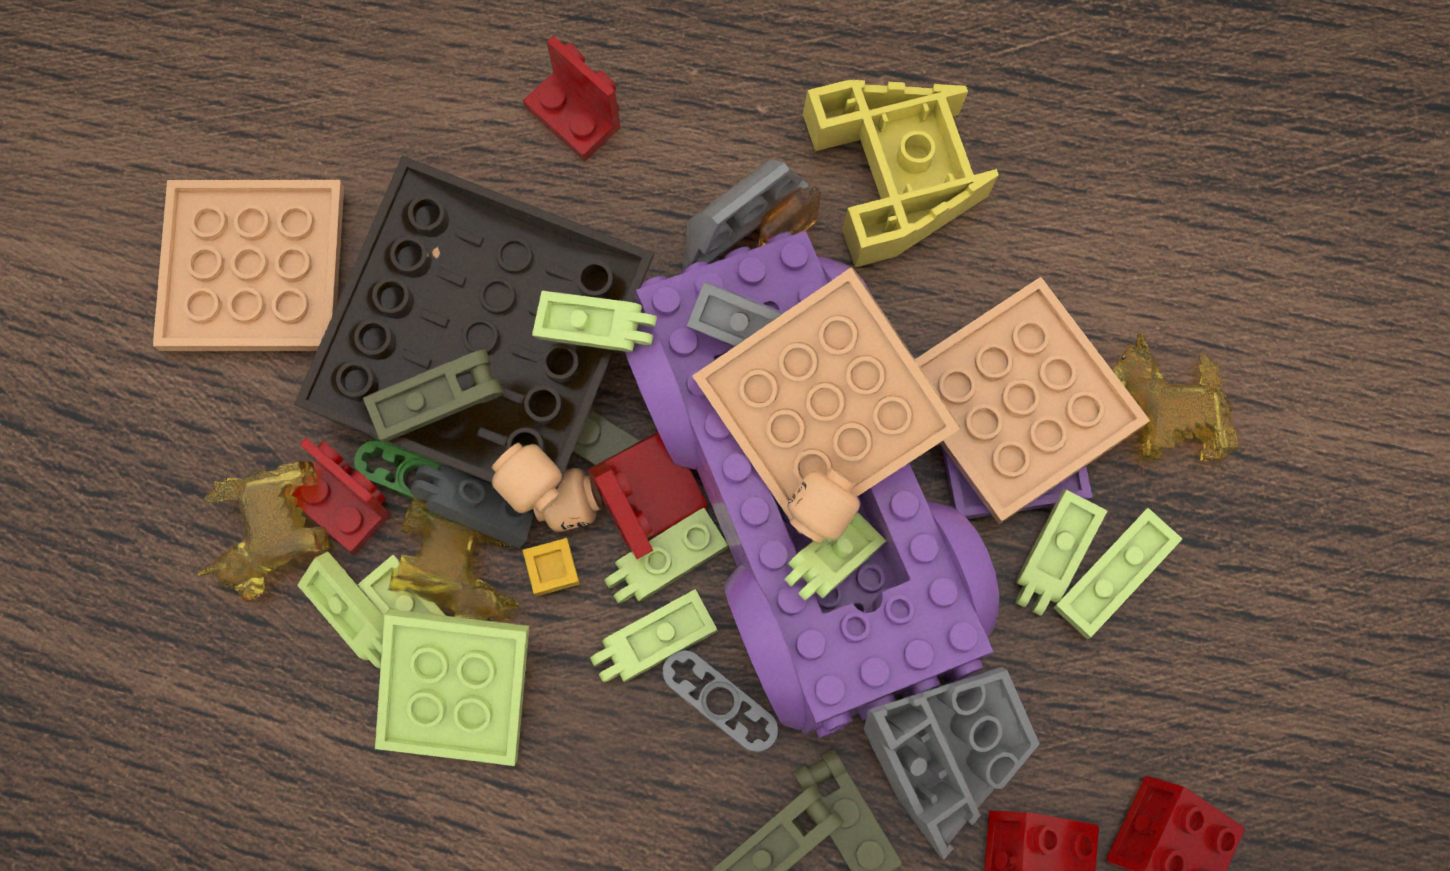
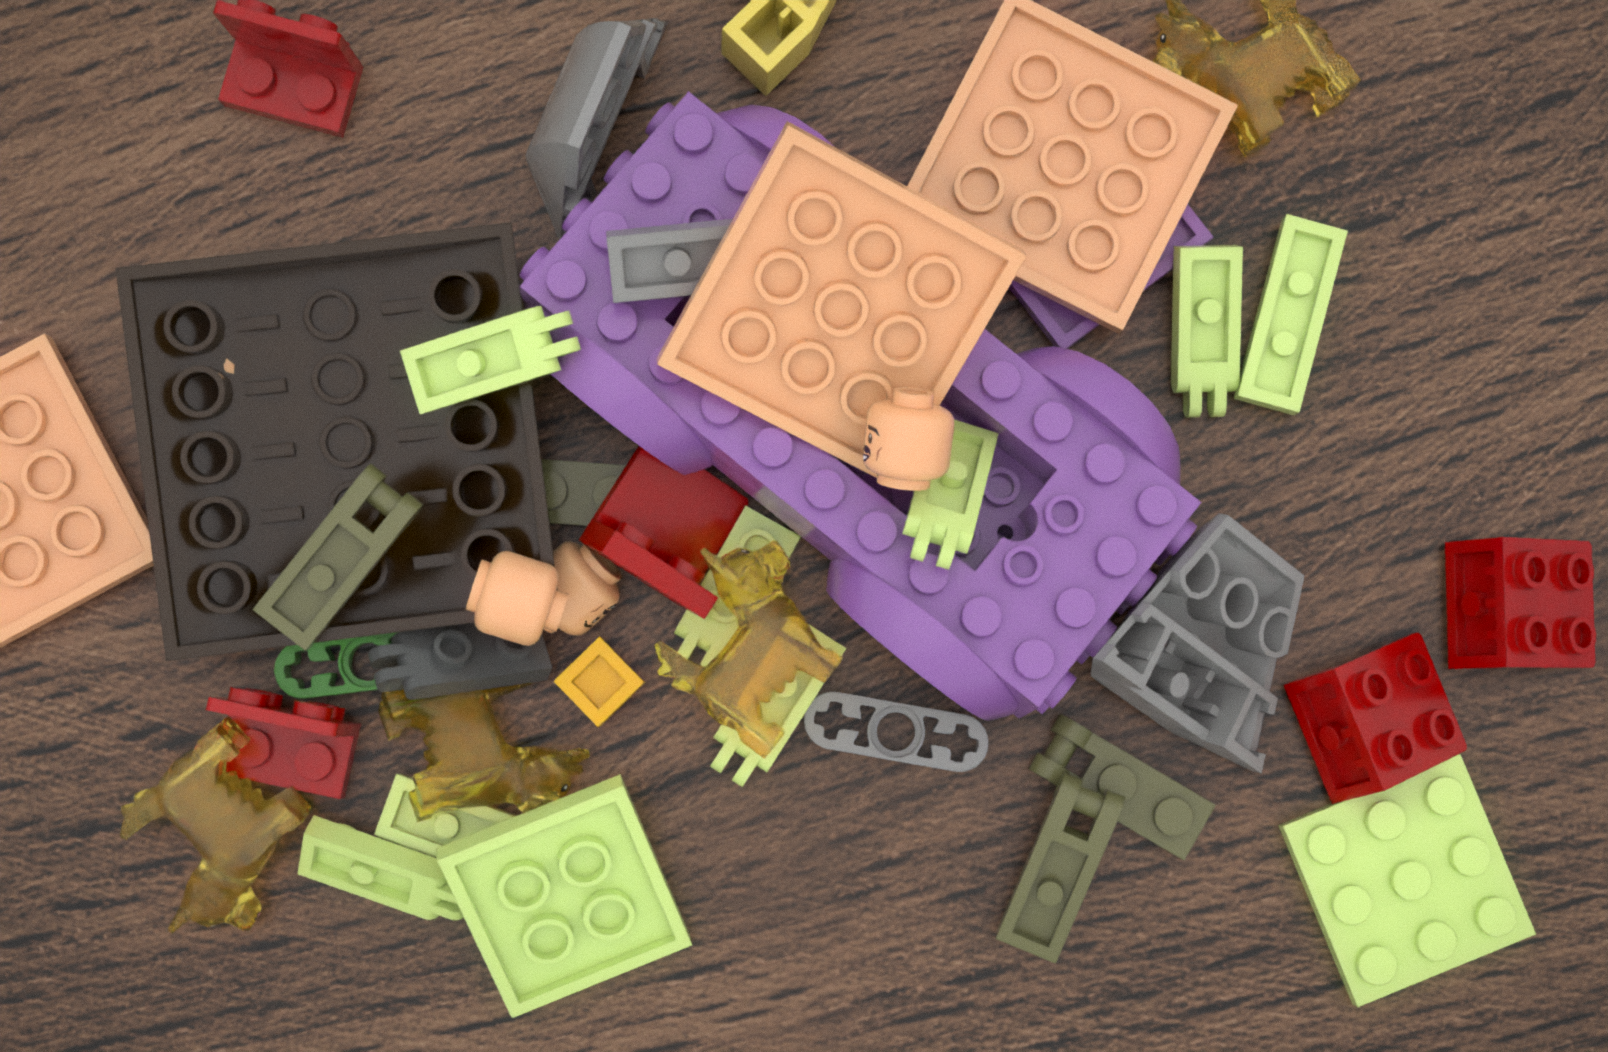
camera: 30 degrees left, 10 degrees up
(659, 600) = (761, 653): none -> clear yellow animal
(791, 215) = (652, 80): clear orange piece -> none

